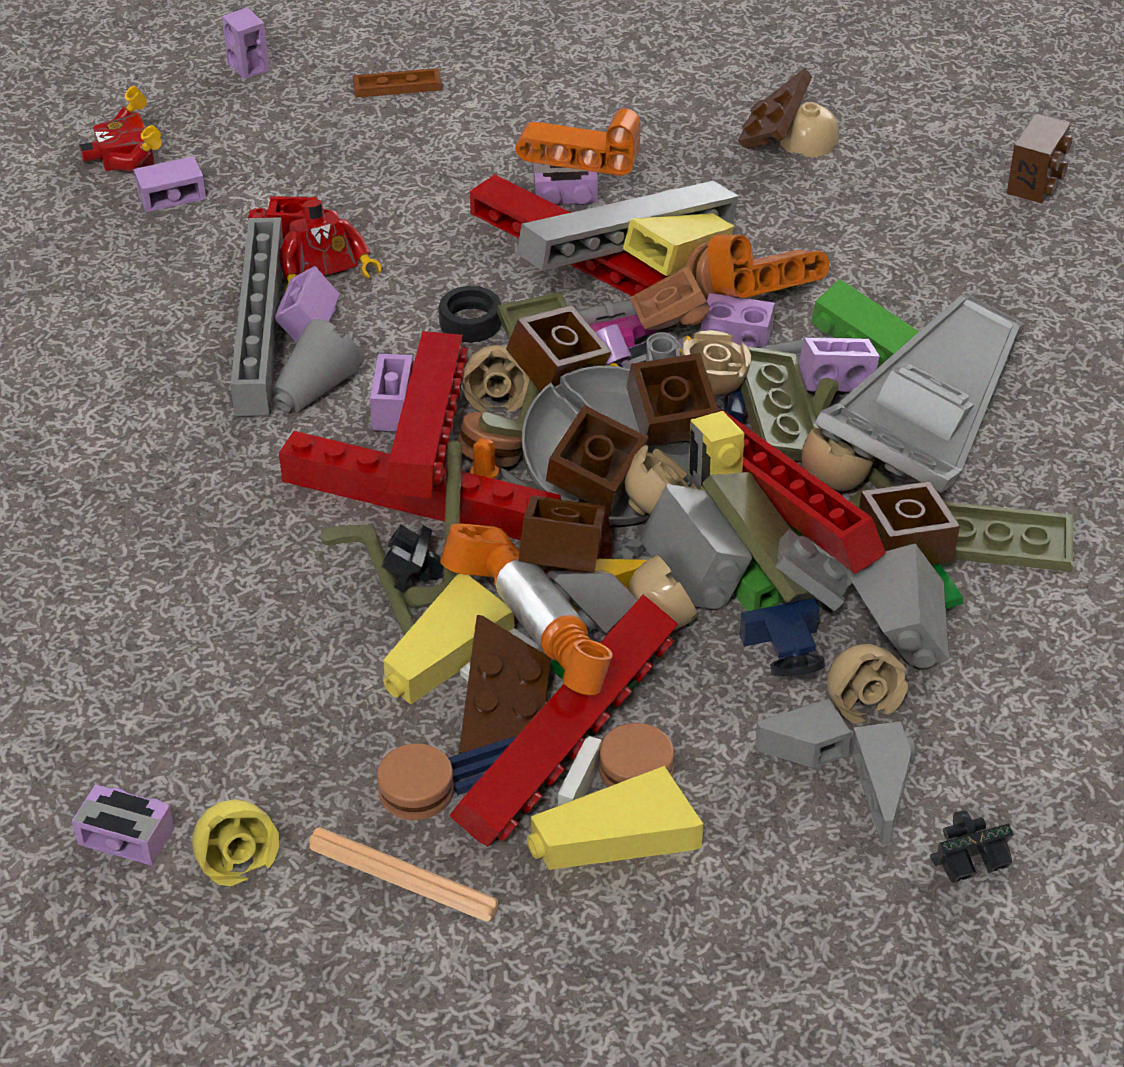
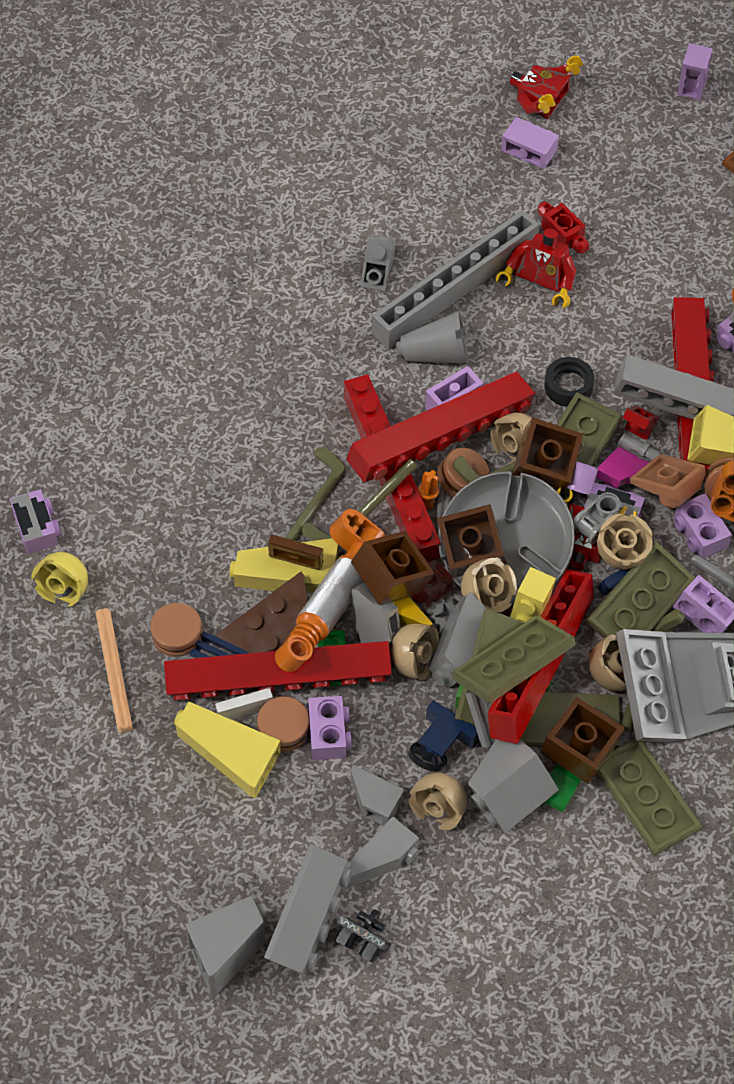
camera: 50 degrees right, 15 degrees up
(160, 355) = (378, 261): none -> light grey slope
(305, 299) = (486, 297): lavender brick -> none
(410, 556) = (320, 507): black hips -> none
(448, 605) = (295, 552): none -> reddish brown tile
(577, 290) = (640, 421): none -> red bracket
(668, 396) = (552, 544): reddish brown brick -> none
(690, 724) = (328, 728): none -> lavender brick
(785, 495) = (513, 658): none -> olive tile
(888, 973) = (226, 941): none -> light grey slope
(912, 864) = (308, 910): none -> light grey slope

